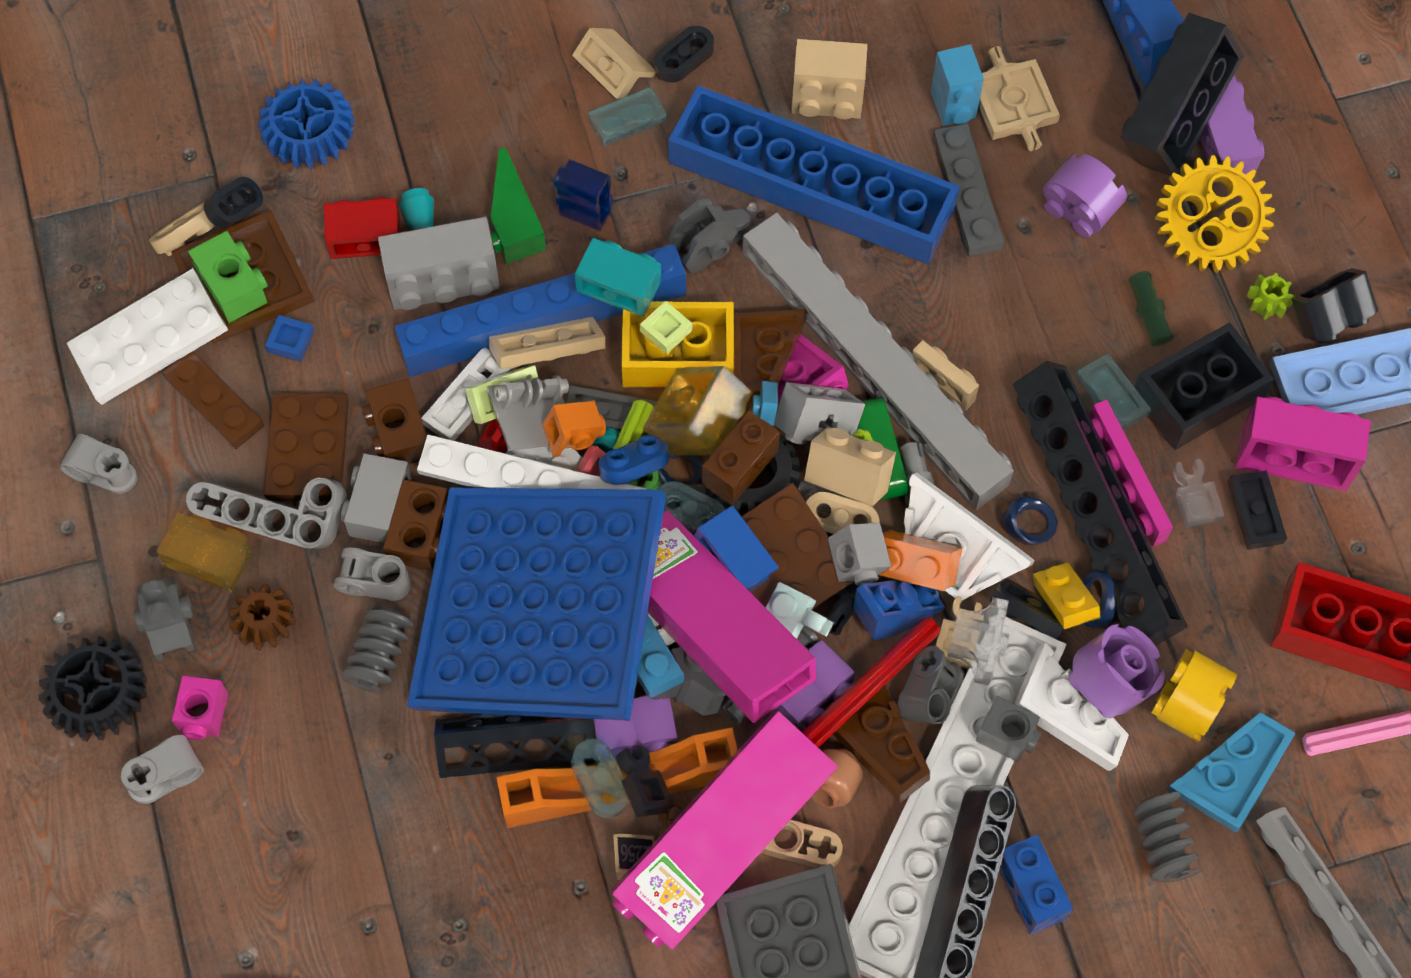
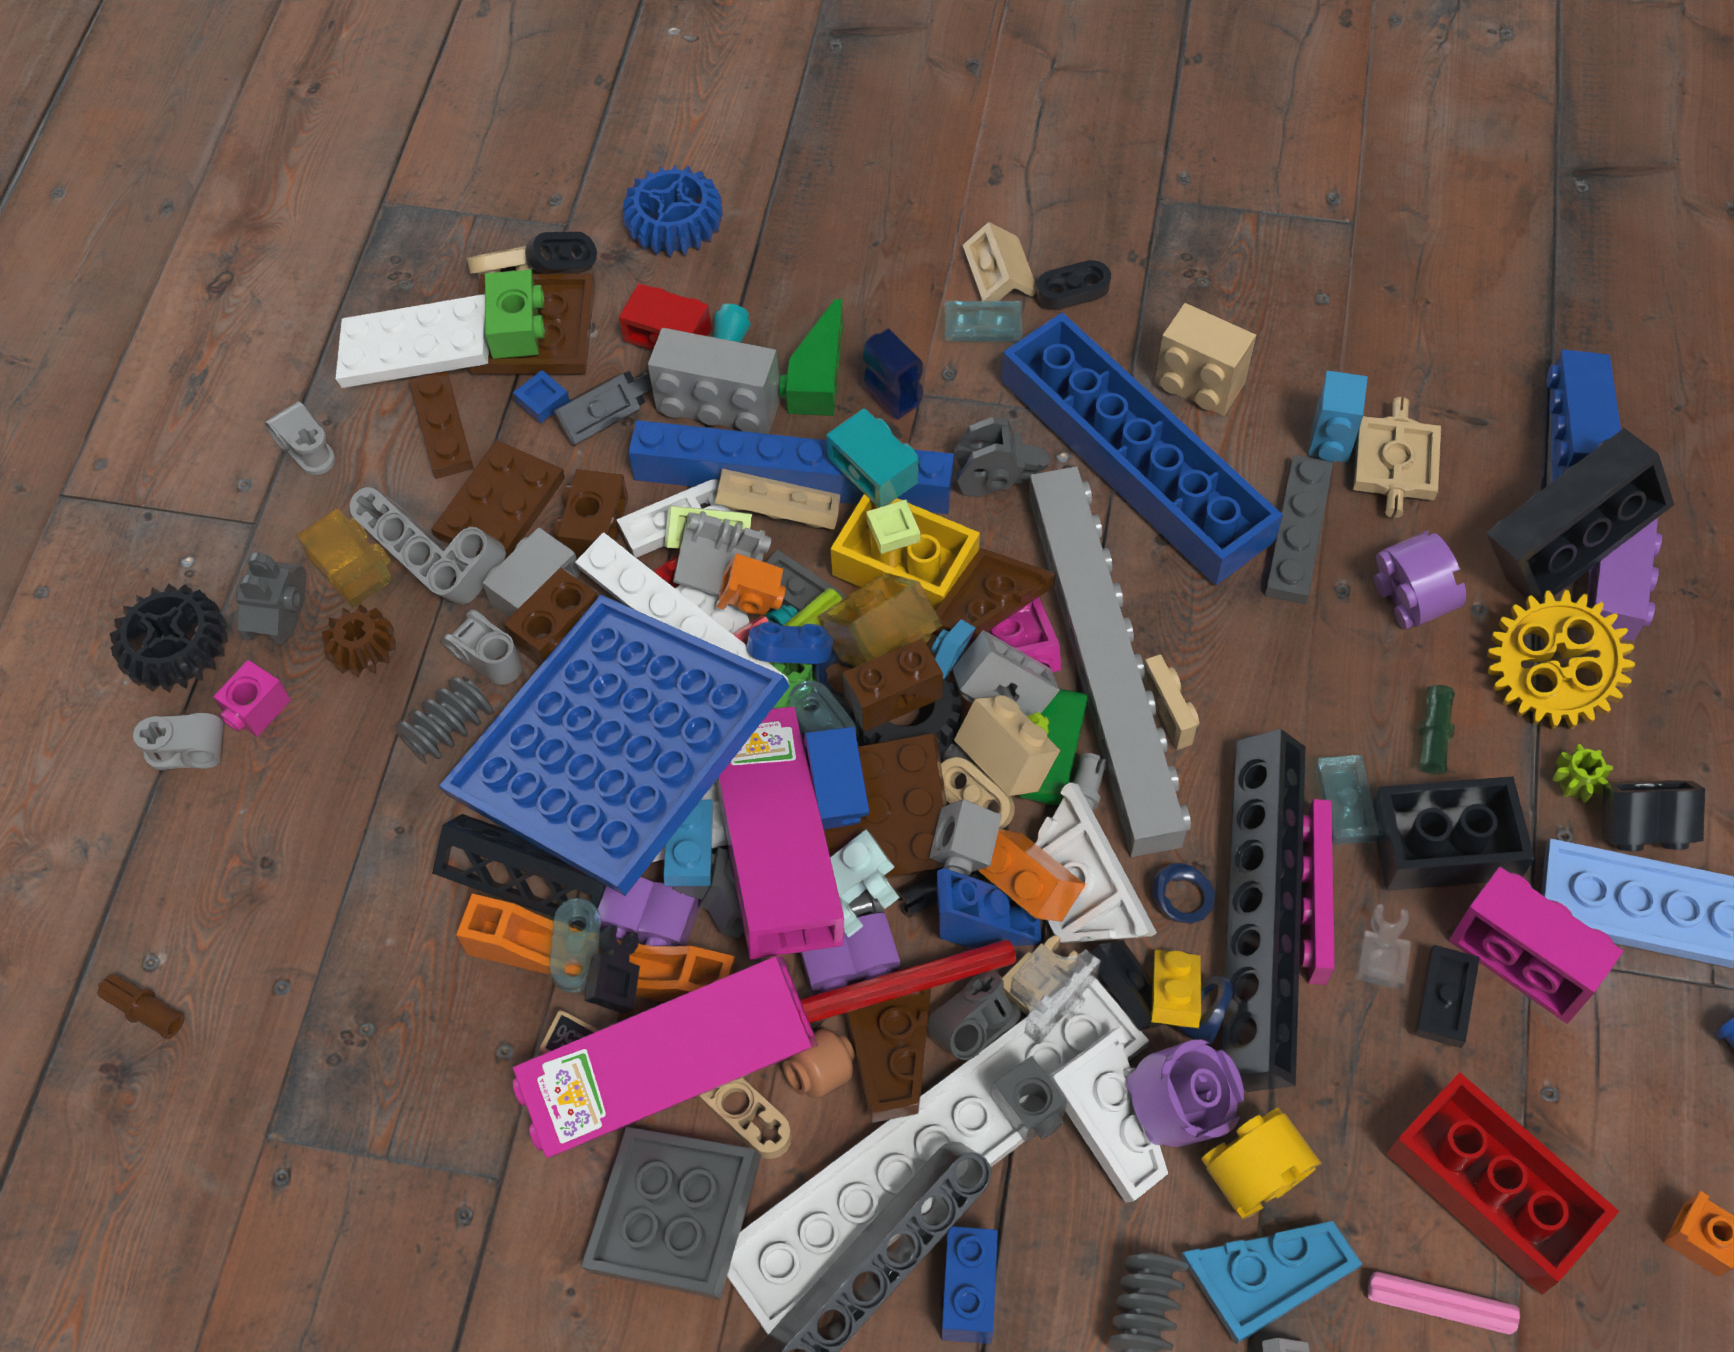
camera: 30 degrees right, 5 degrees down
(349, 323) = (602, 405): none -> hinge

